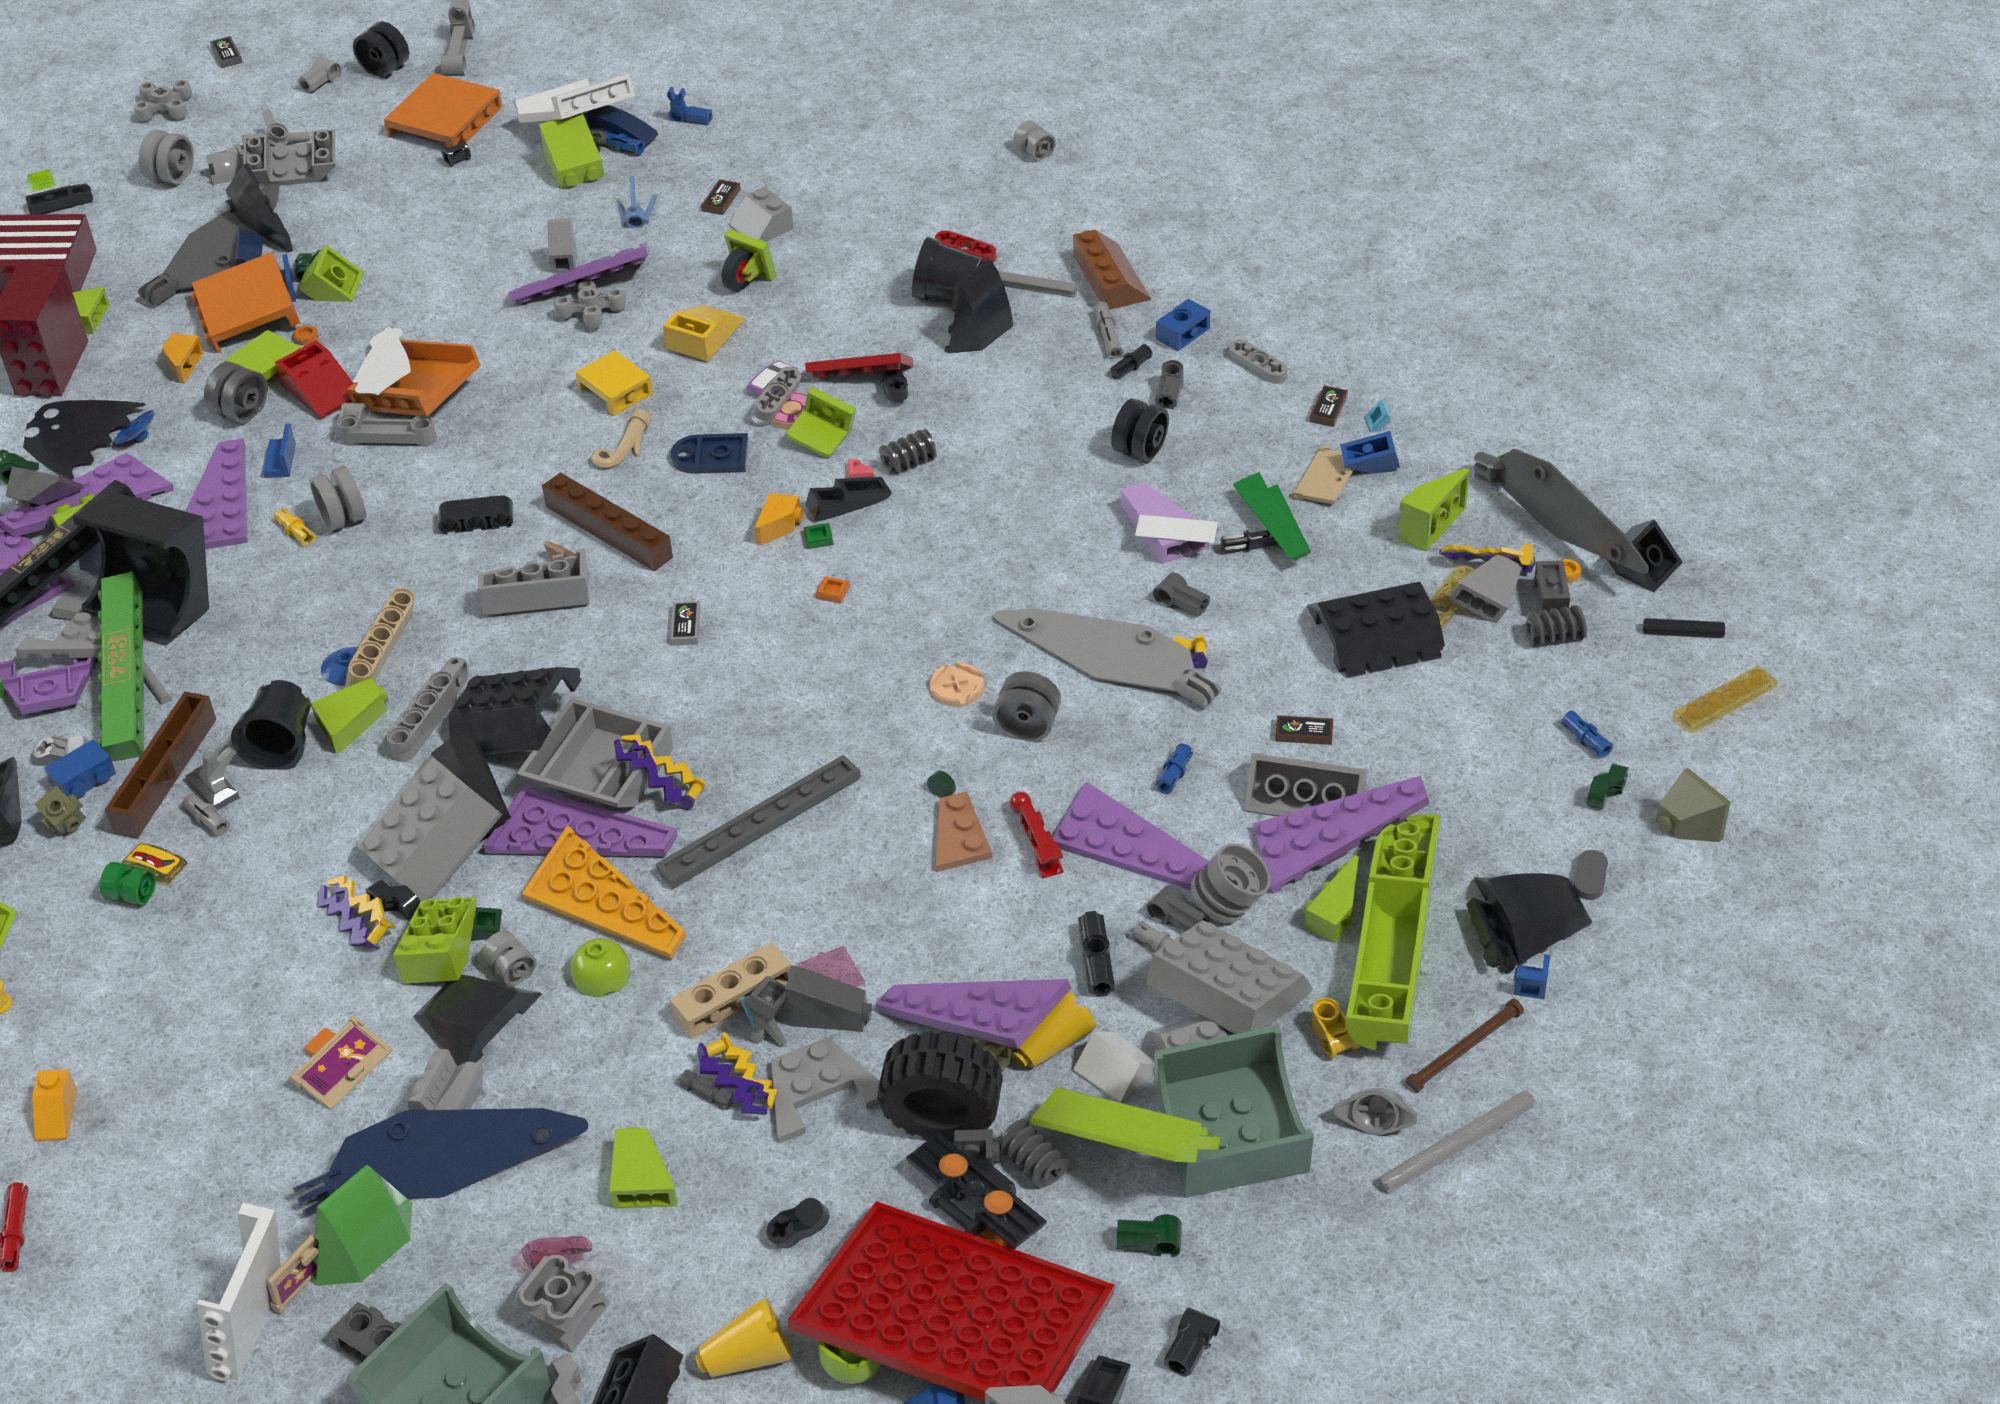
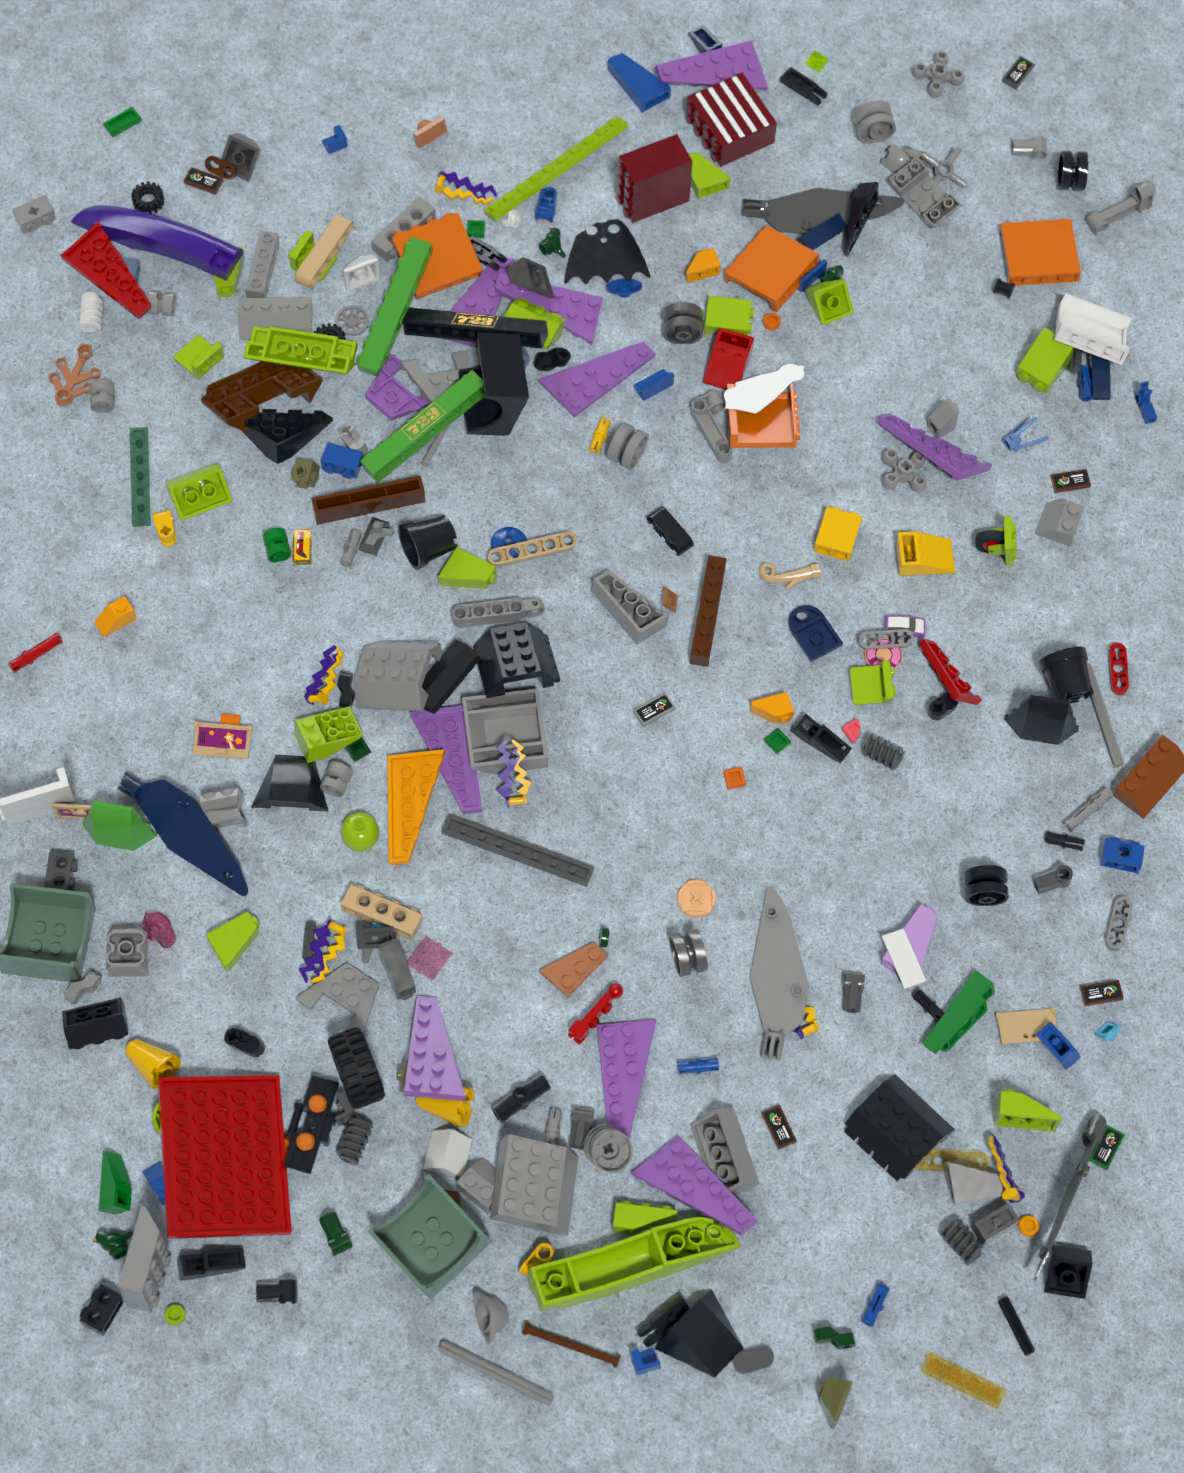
camera: 55 degrees right, 20 degrees up
(1124, 1126) = (380, 1183): lime slope -> none

